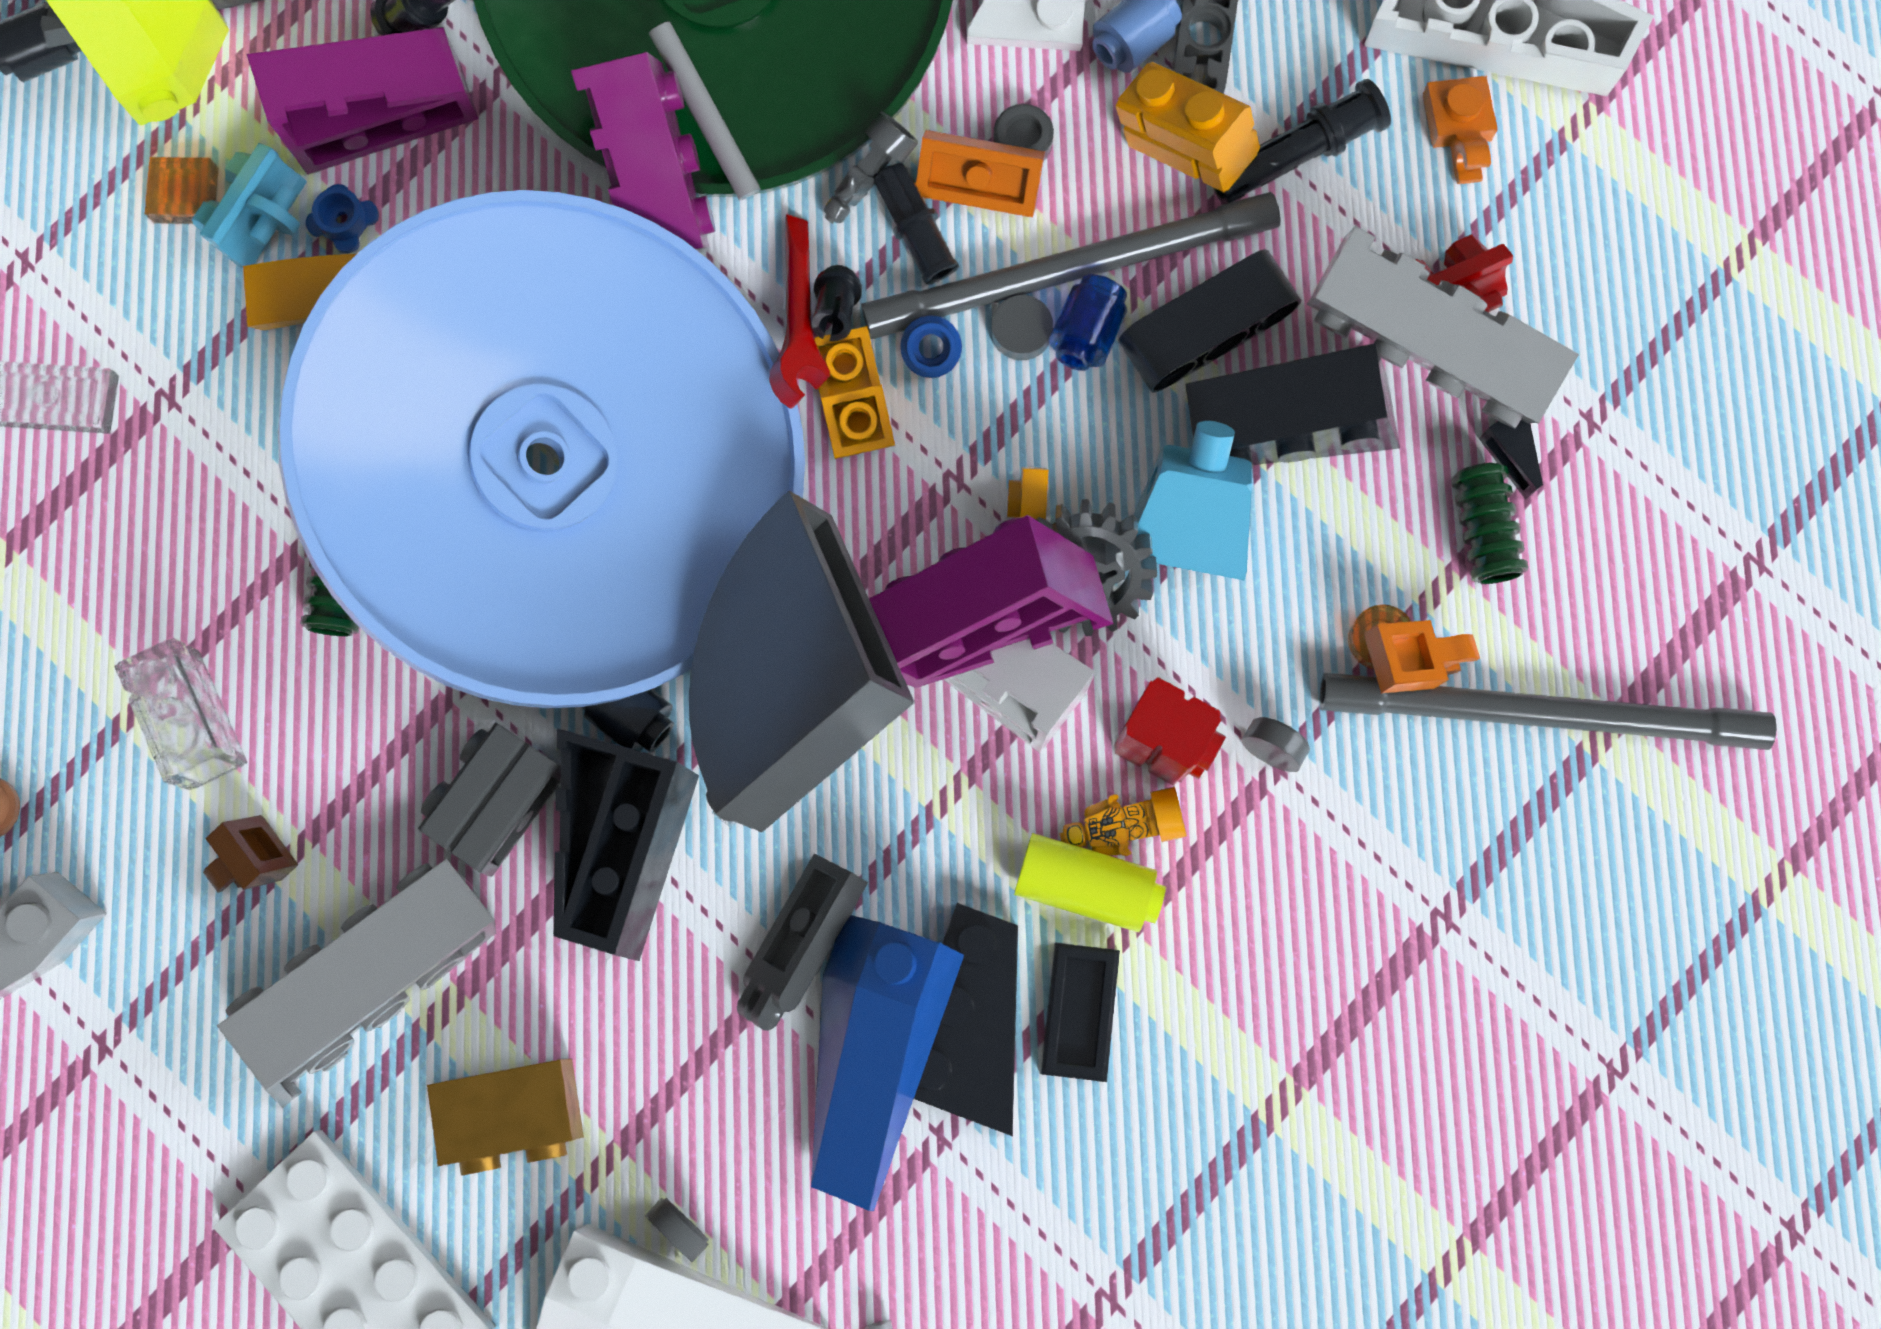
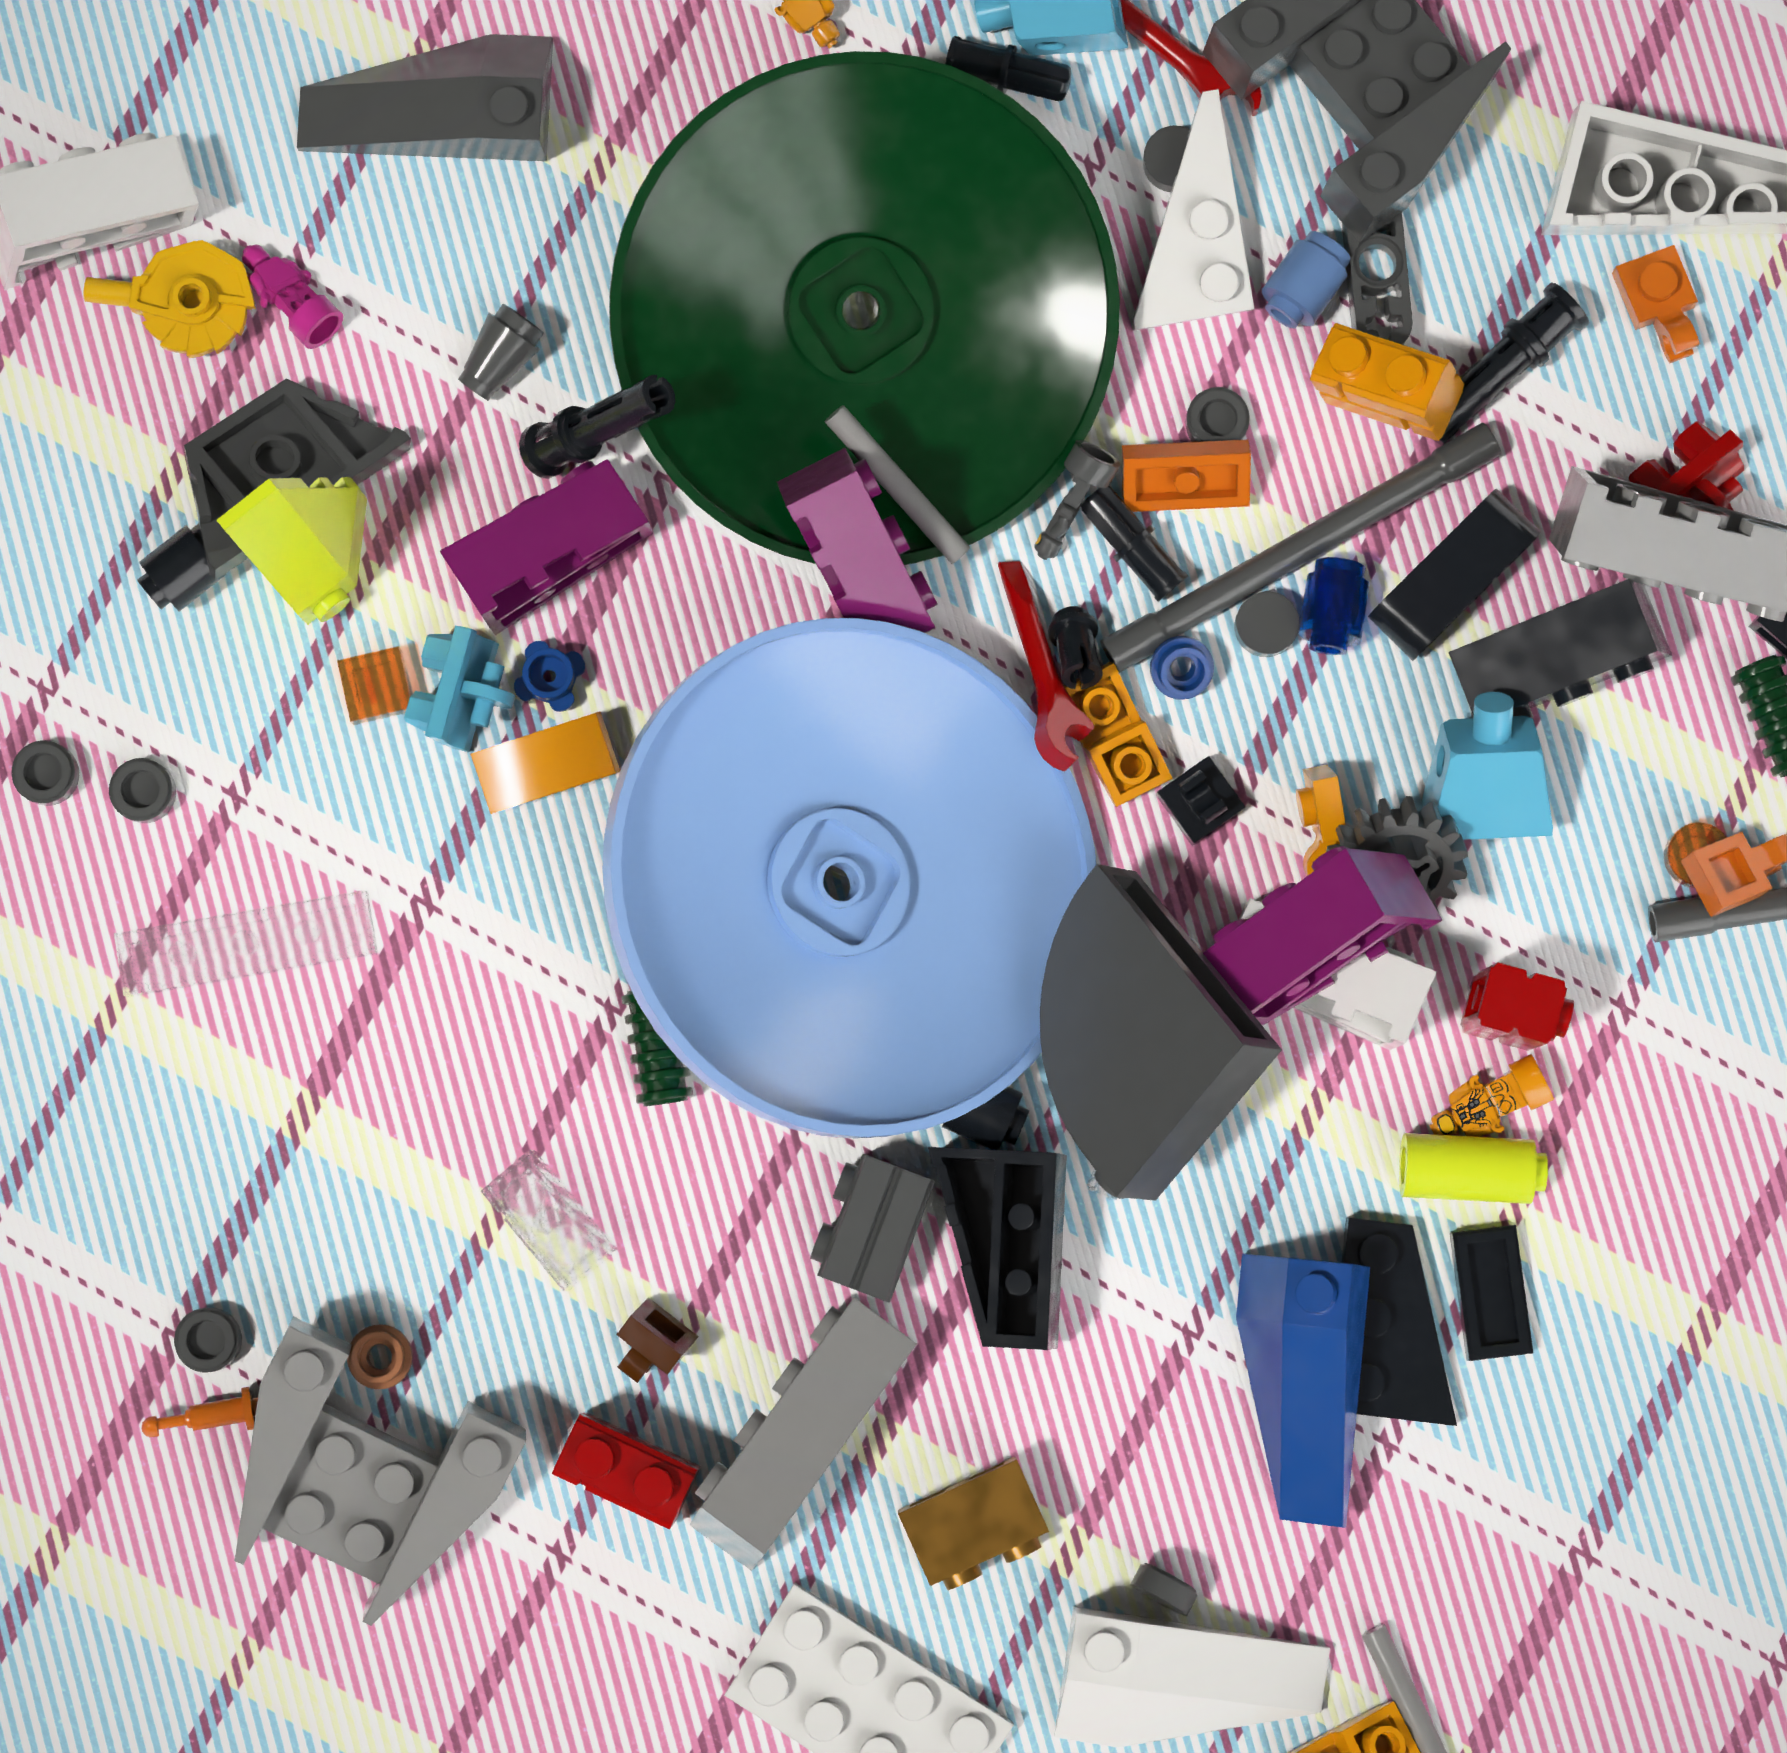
camera: 10 degrees left, 5 degrees up
(175, 972) = (626, 1470): none -> red brick
(798, 941) = (1207, 1292): dark grey hinge -> none
(917, 474) = (1200, 800): none -> black tile
(1276, 744) = (1619, 988): dark grey tile -> none

